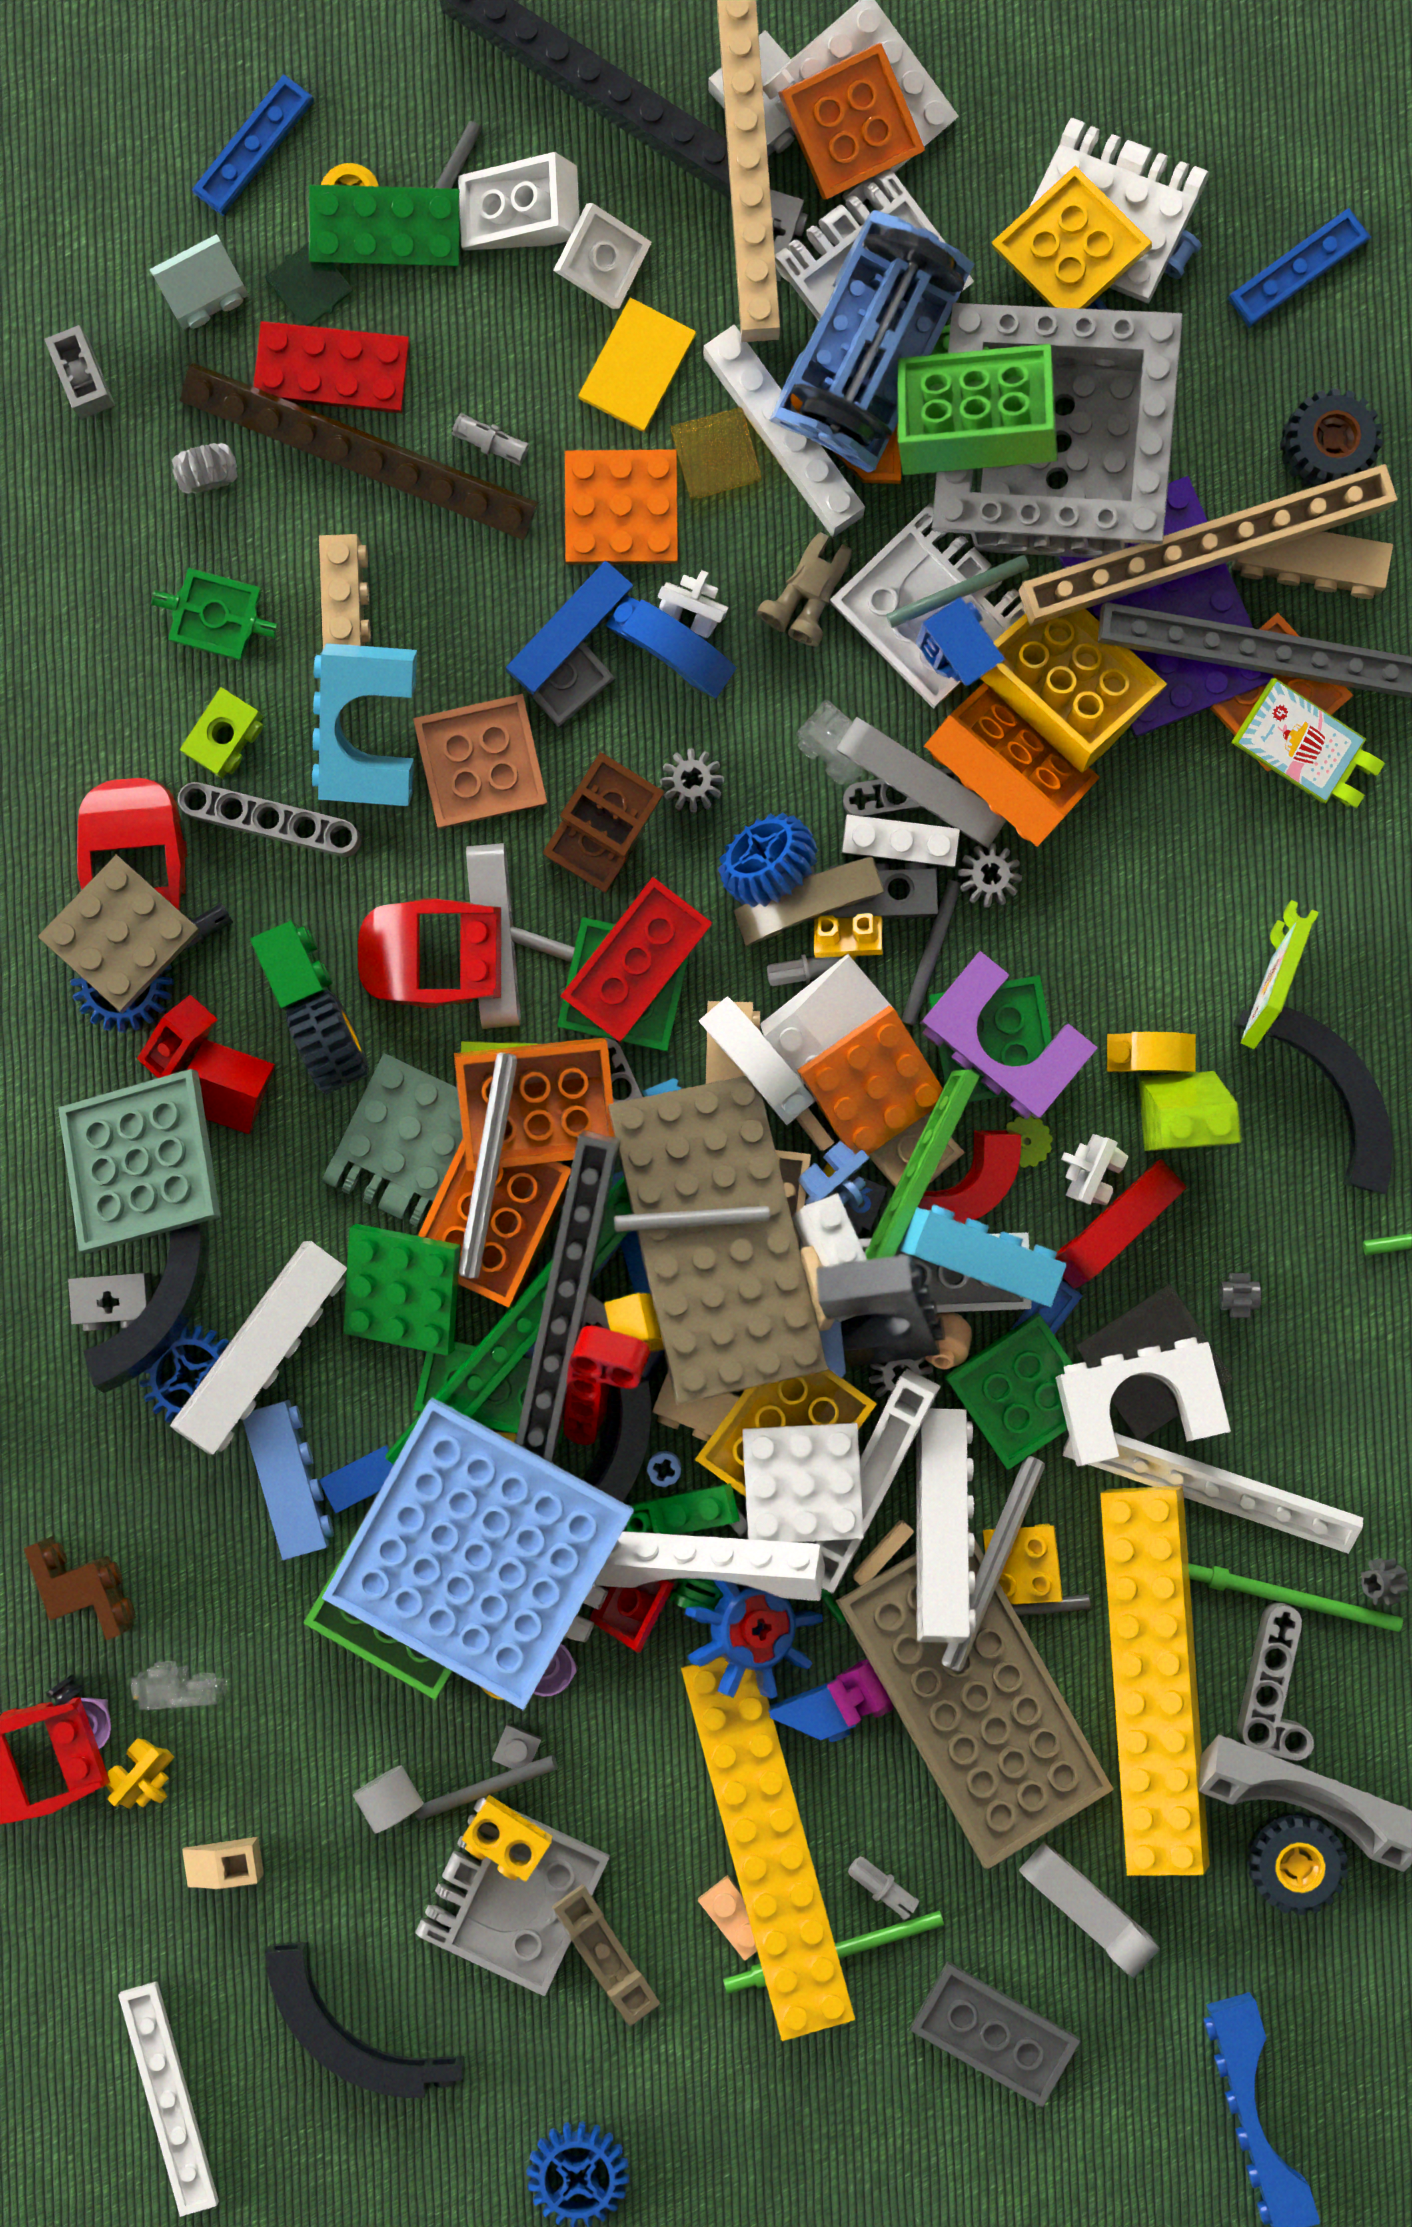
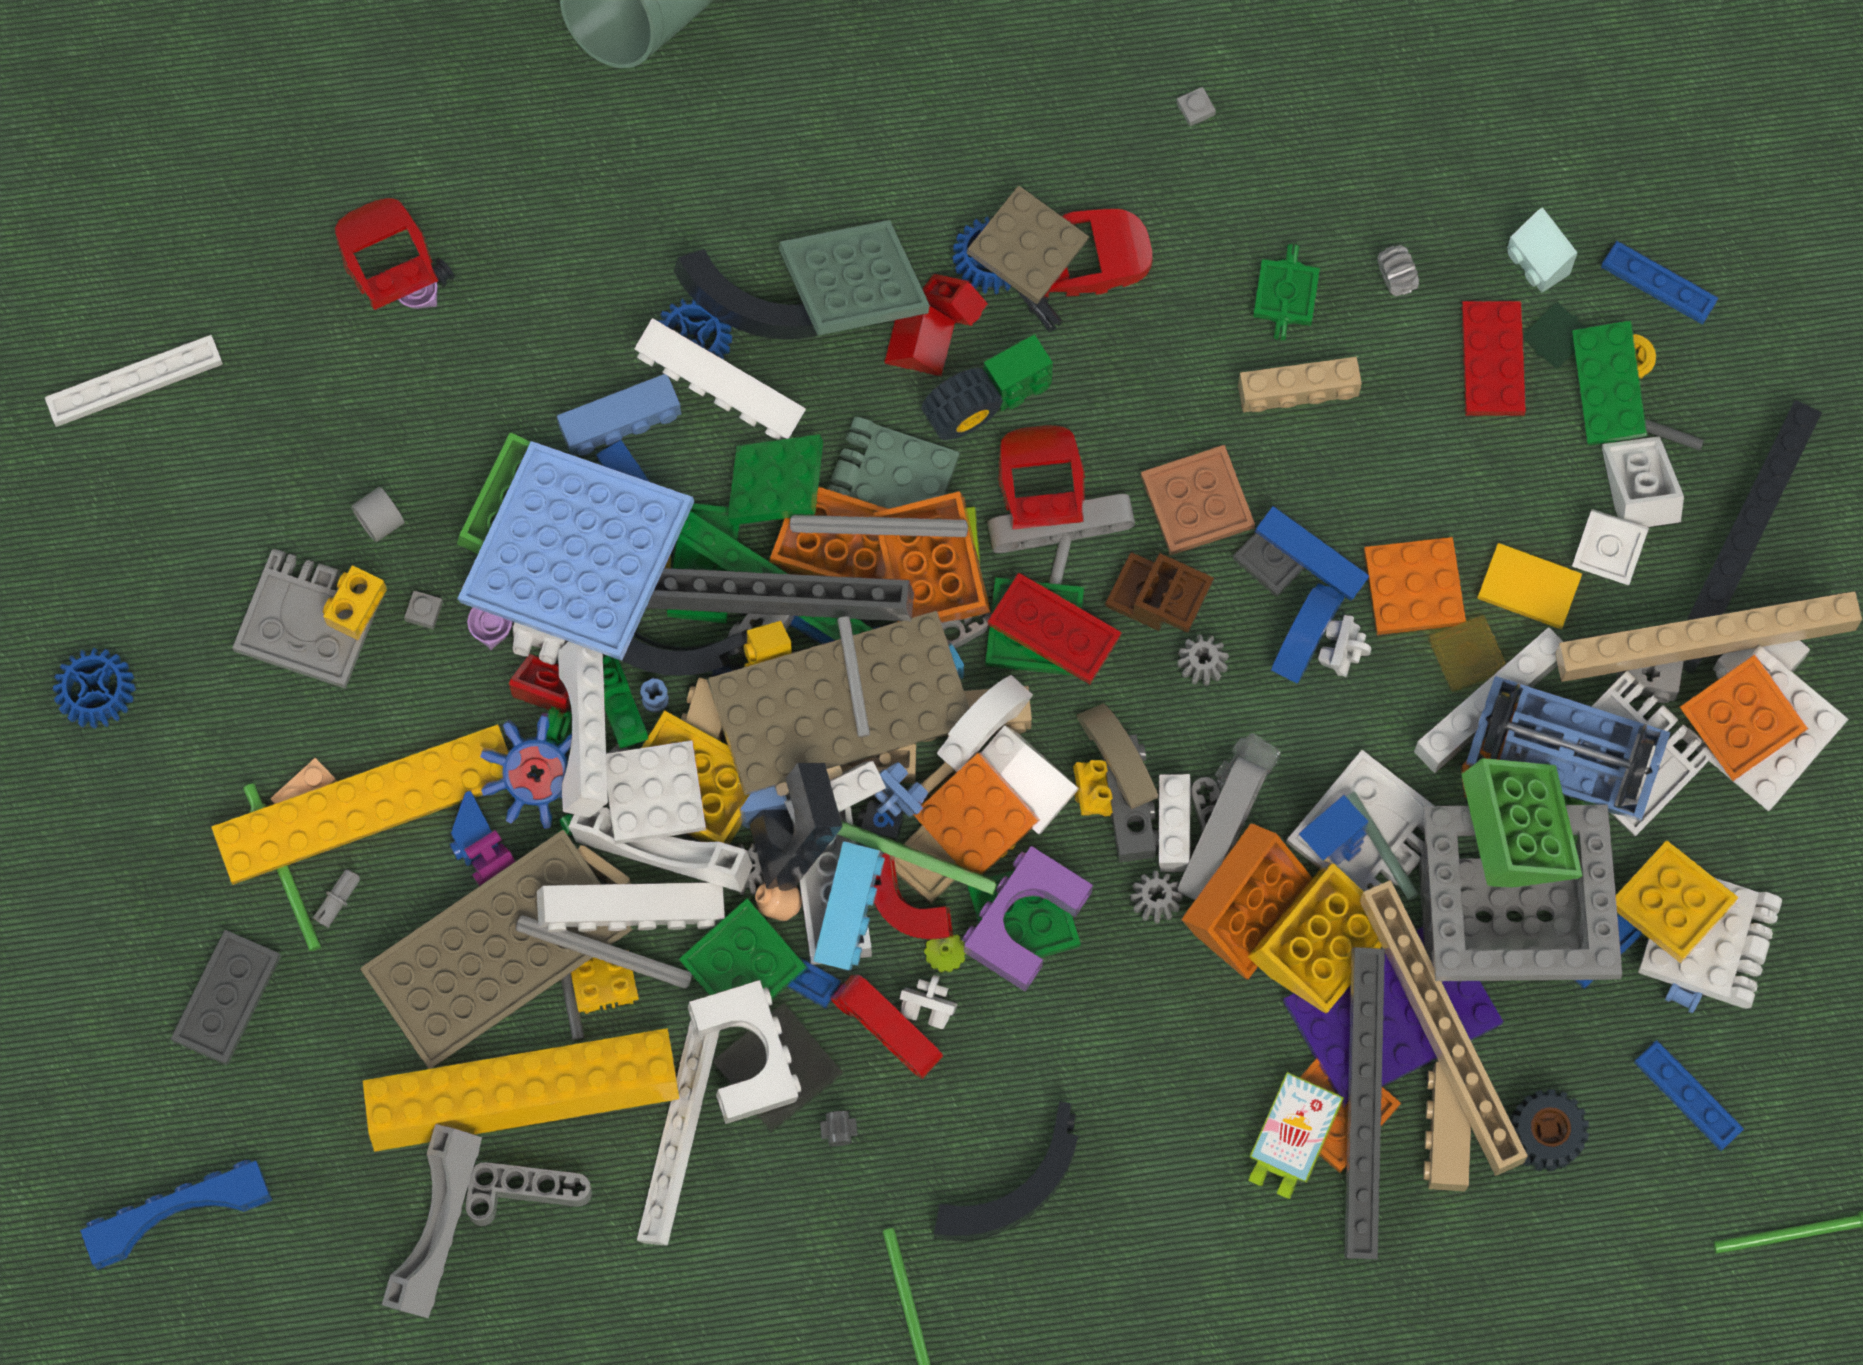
camera: 80 degrees right, 15 degrees down
(79, 372) = (1459, 172): light grey brick -> none
(80, 1587) = (523, 274): reddish brown bracket -> none
(88, 1295) = (747, 257): light grey brick -> none
(144, 1780) = (378, 335): yellow hips -> none
(170, 1687) = (453, 344): clear plate -> none
(223, 711) = (1186, 293): lime brick -> none
(223, 1864) = (318, 401): tan slope -> none
(255, 808) = (1128, 361): light grey beam -> none
(338, 2048) = (188, 488): black arch -> none
(342, 769) = (1178, 394): medium azure arch -> none
(358, 451) = (1429, 385): dark brown plate -> none
(486, 1787) = (392, 588): dark grey bar -> none
(490, 439) = (1453, 480): light grey pin -> none
(596, 1362) = (727, 619): red beam -> none
(605, 1955) = (269, 688): dark tan slope -> none
(768, 860) = (1145, 718): blue gear -> none
(799, 970) = (1061, 756): light grey axle -> none
(813, 581) = (1375, 735): dark tan piece -> none
(931, 953) = (1092, 861): dark grey bar -> none
(1090, 1909) = (334, 1058): light grey beam -> none
(1151, 1052) = (1028, 1039): yellow brick -> none
(1187, 1111) = (981, 1061): lime slope -> none
(1220, 1578) = (606, 1139): bright green bar -> none
(1279, 972) = (1102, 1123): lime tile -> none
(1296, 1863) = (381, 1220): black wheel -> none
(1384, 1581) = (616, 1268): dark grey gear -> none

